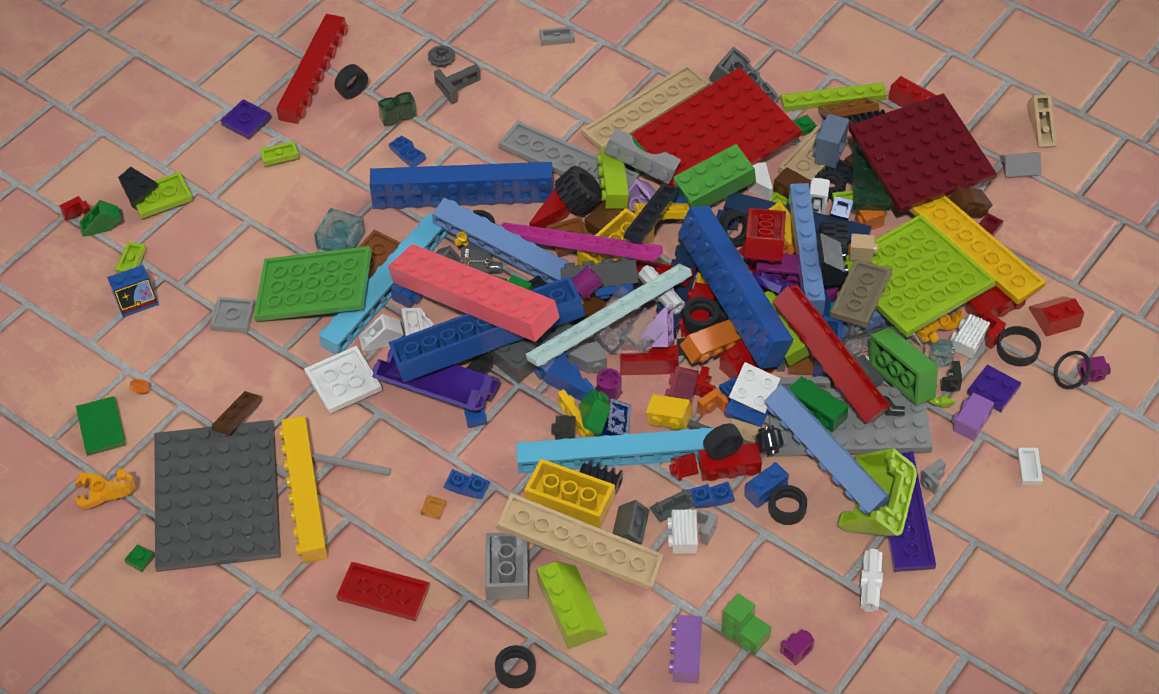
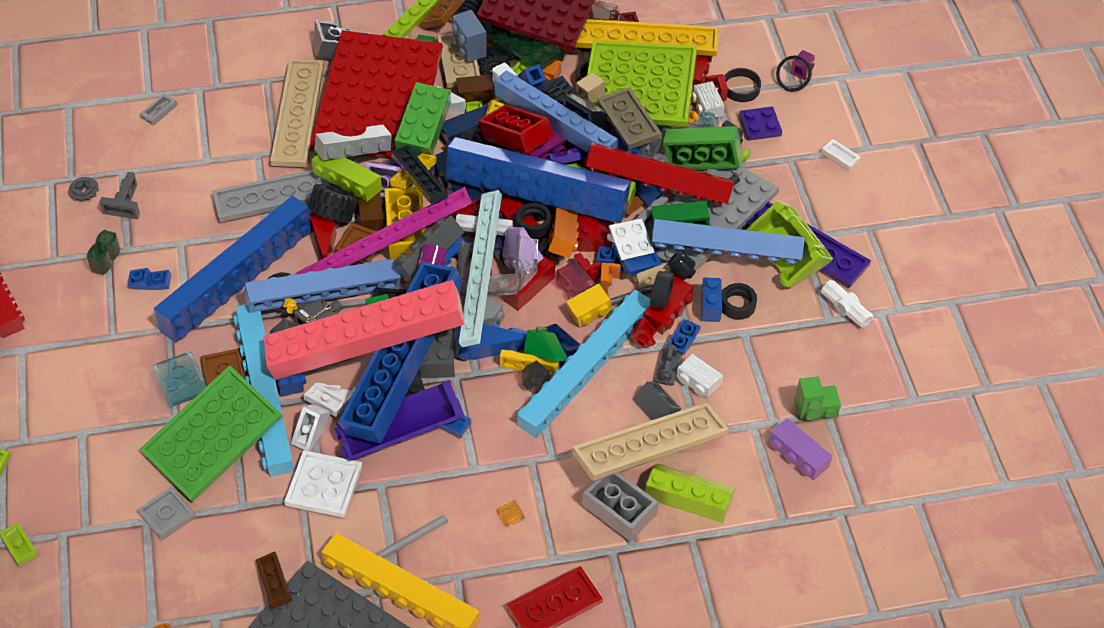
camera: 50 degrees left, 0 degrees up
(132, 291) = (56, 566): slope -> none
(279, 153) = (42, 361): lime plate -> none
(345, 76) = (36, 259): black tyre -> none
(466, 485) = (514, 477): blue slope -> none
(515, 652) = (708, 580): black tyre -> none
(570, 492) = (597, 415): yellow brick -> none
(603, 474) = (600, 385): black piece -> none
(610, 383) = (525, 318): magenta piece -> none
(708, 525) = (709, 356): light grey bracket -> none
(797, 646) = (860, 384): magenta brick -> none
(932, 475) = (798, 204): light grey bracket -> none
(972, 416) = (773, 150): medium lavender brick -> none
(1057, 315) = (739, 46): red slope -> none

